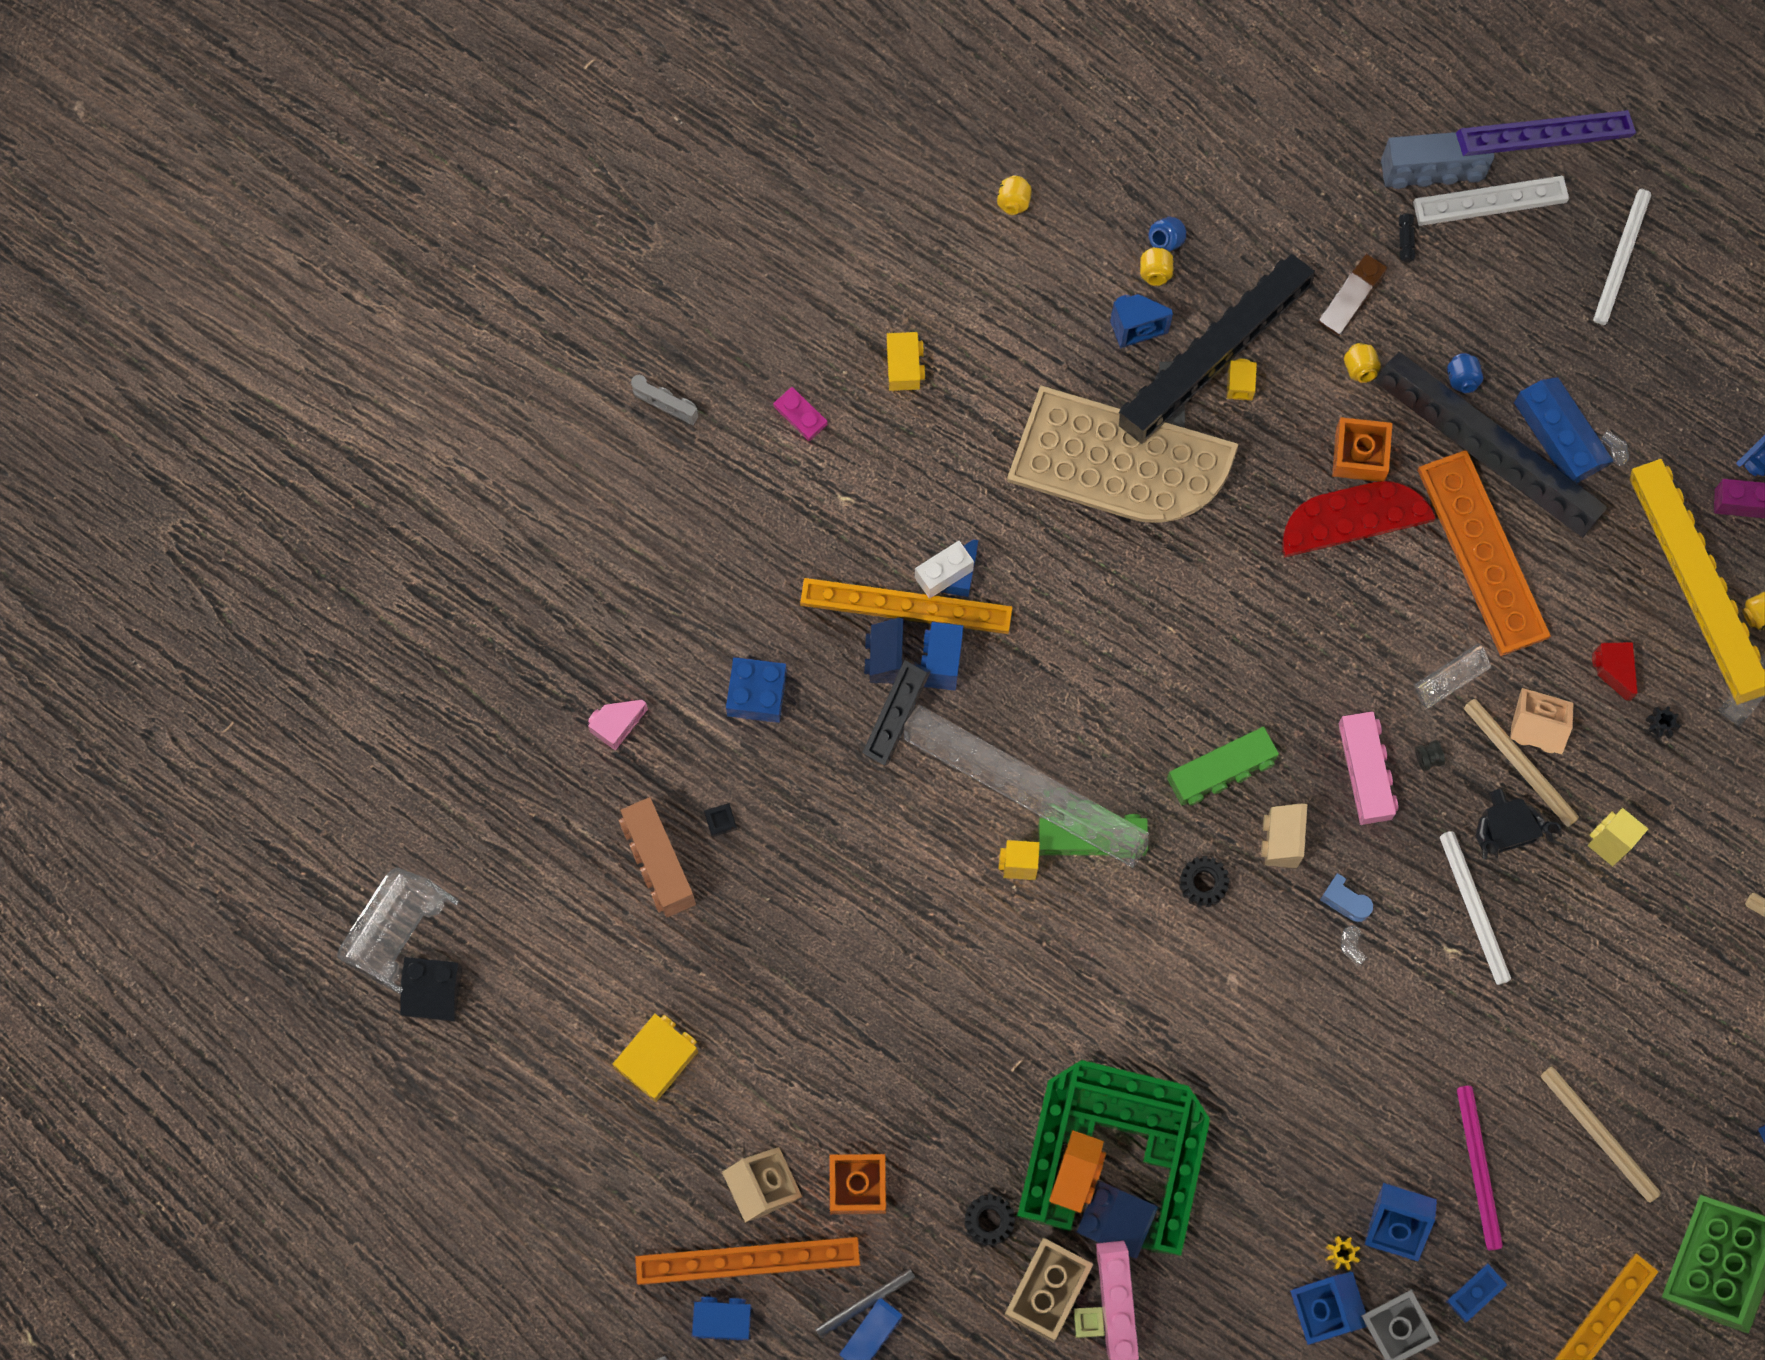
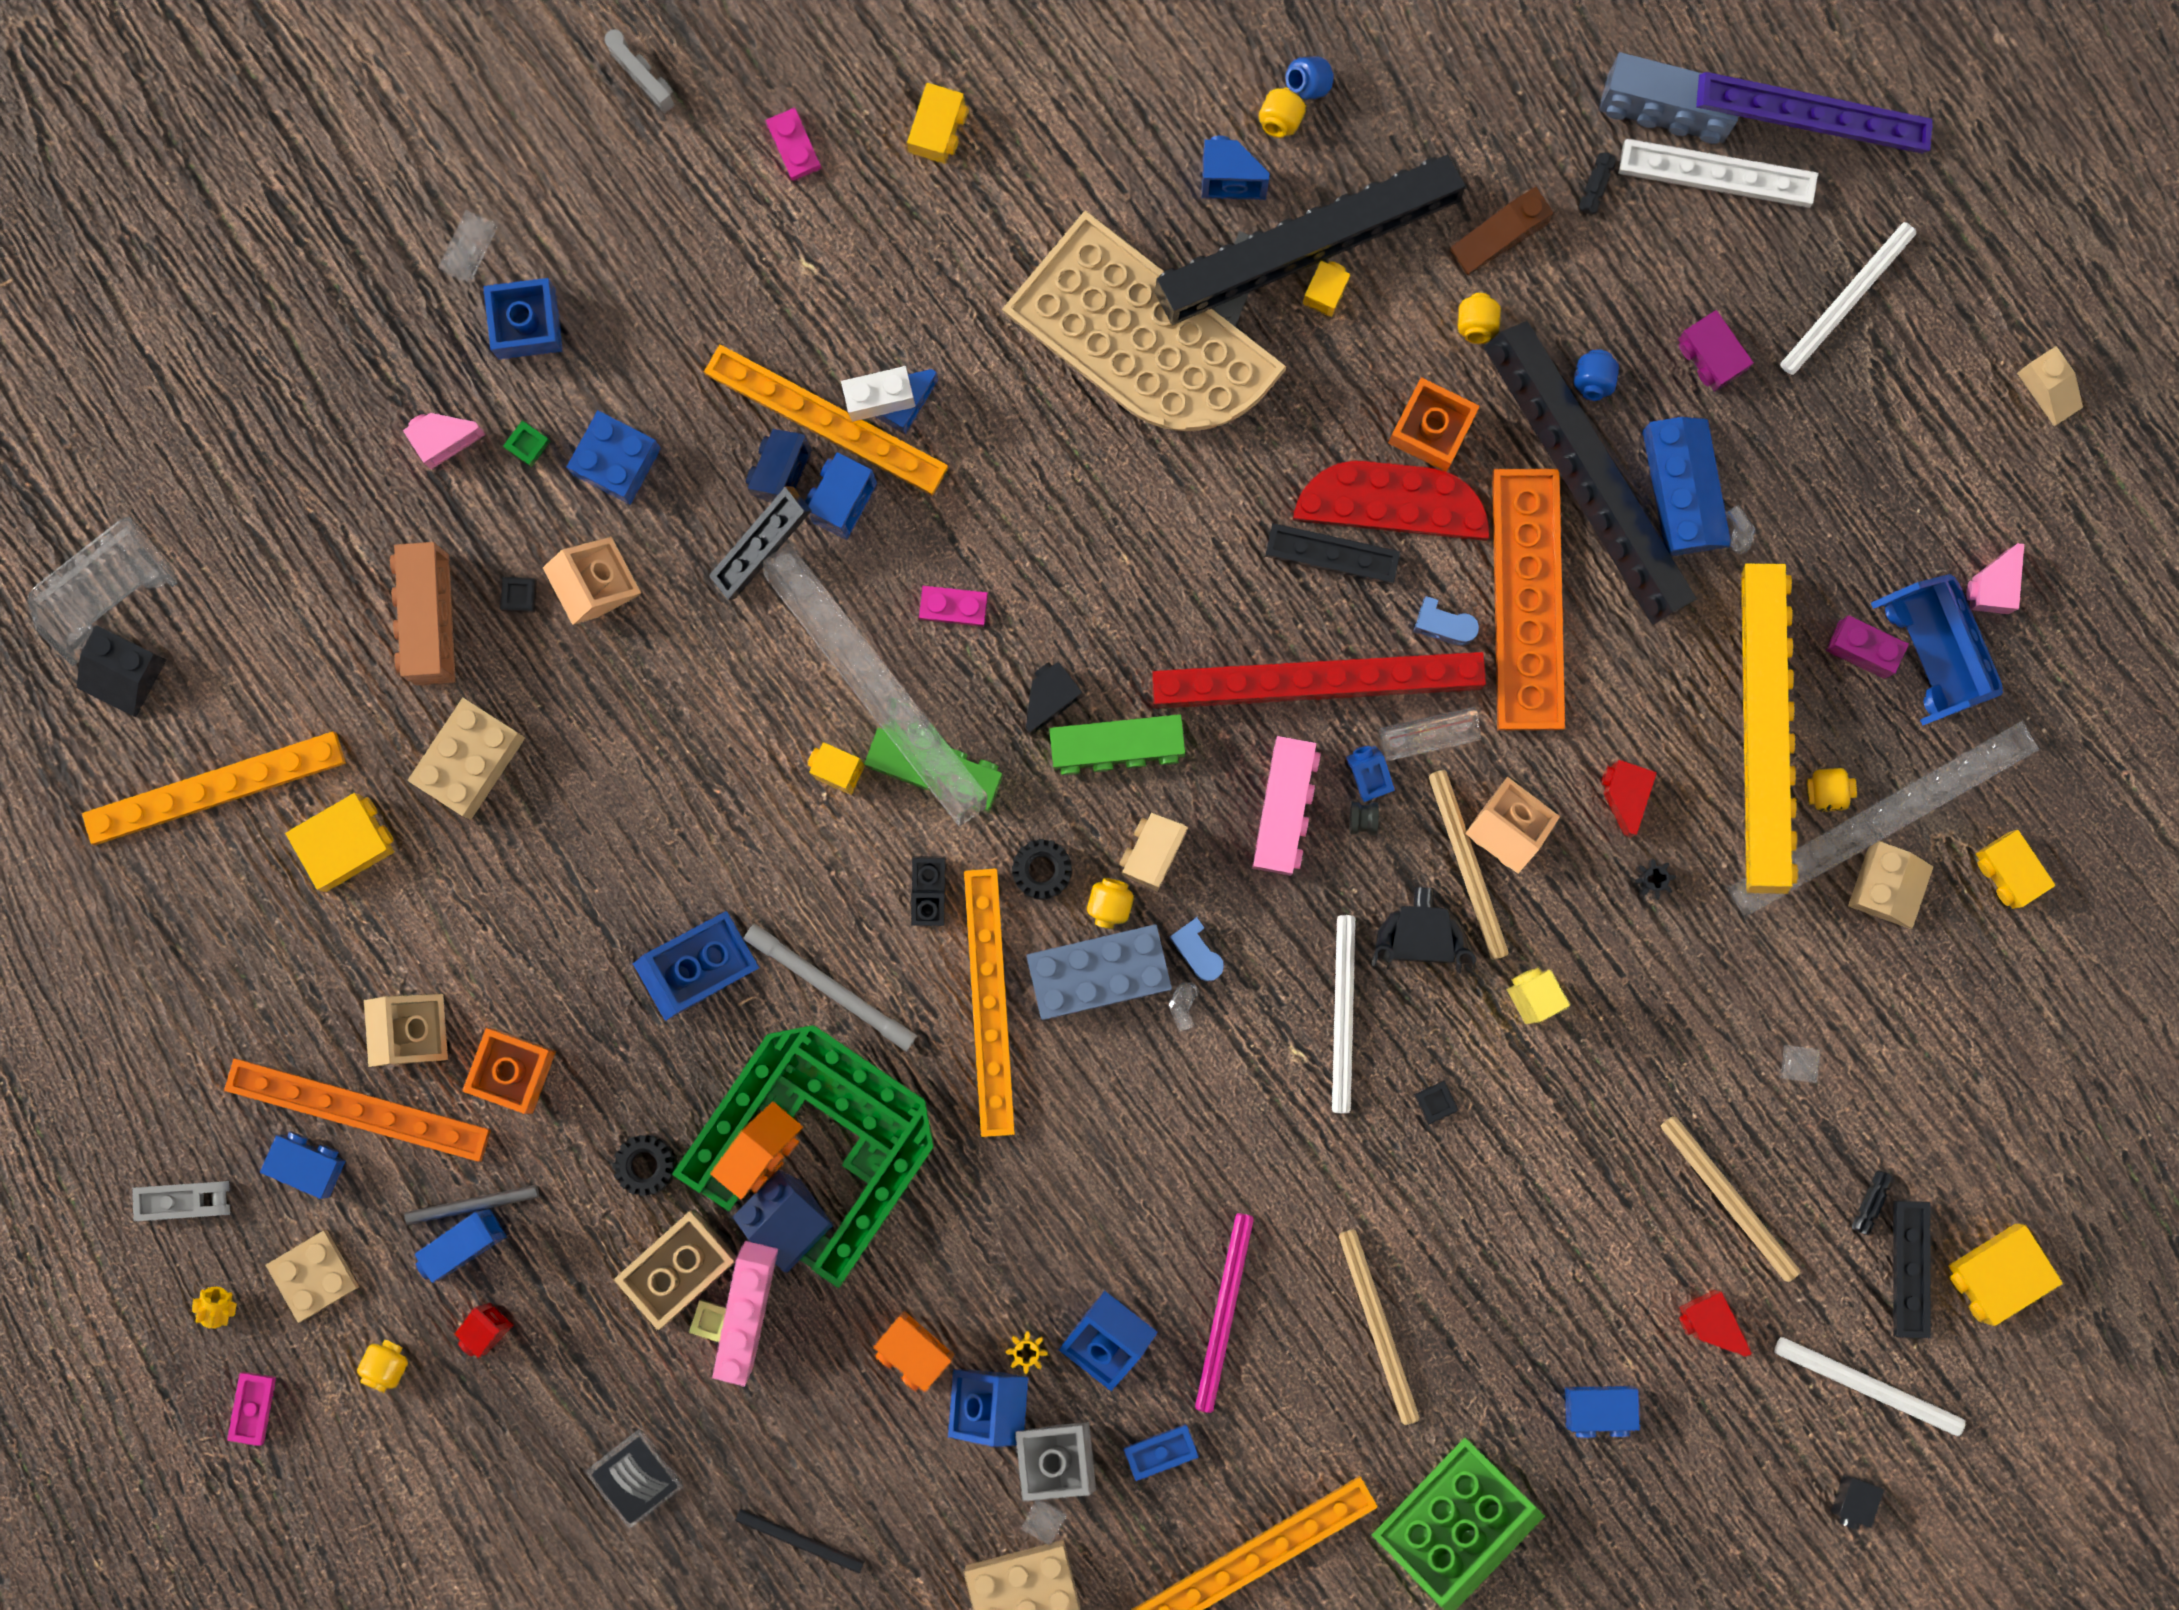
camera: 25 degrees right, 10 degrees up
(537, 1053) = (213, 788): none -> light orange plate
(581, 574) = (468, 247): none -> clear plate
(648, 610) = (523, 318): none -> blue brick
(684, 704) = (526, 443): none -> green plate
(730, 957) = (466, 759): none -> tan brick
(773, 788) = (591, 579): none -> light nougat slope
(968, 1051) = (695, 965): none -> blue slope
(1056, 710) = (953, 606): none -> dark pink plate
(1123, 929) = (928, 891): none -> black slope
(1133, 1044) = (772, 947): none -> light grey piece
(1157, 749) = (1050, 695): none -> black slope
(1205, 997) = (989, 1002): none -> light orange plate
(1258, 1283) = (913, 1352): none -> orange brick
(1266, 887) = (1110, 903): none -> yellow head
(1279, 942) = (1099, 972): none -> sand blue brick
(1325, 570) = (1332, 554): none -> black plate
(1353, 666) = (1318, 680): none -> red brick
(1420, 720) = (1370, 772): none -> blue bracket
(1429, 592) = (1445, 626): none -> medium blue leg
(1543, 326) = (1714, 351): none -> magenta brick
(1571, 948) = (1436, 1102): none -> black tile

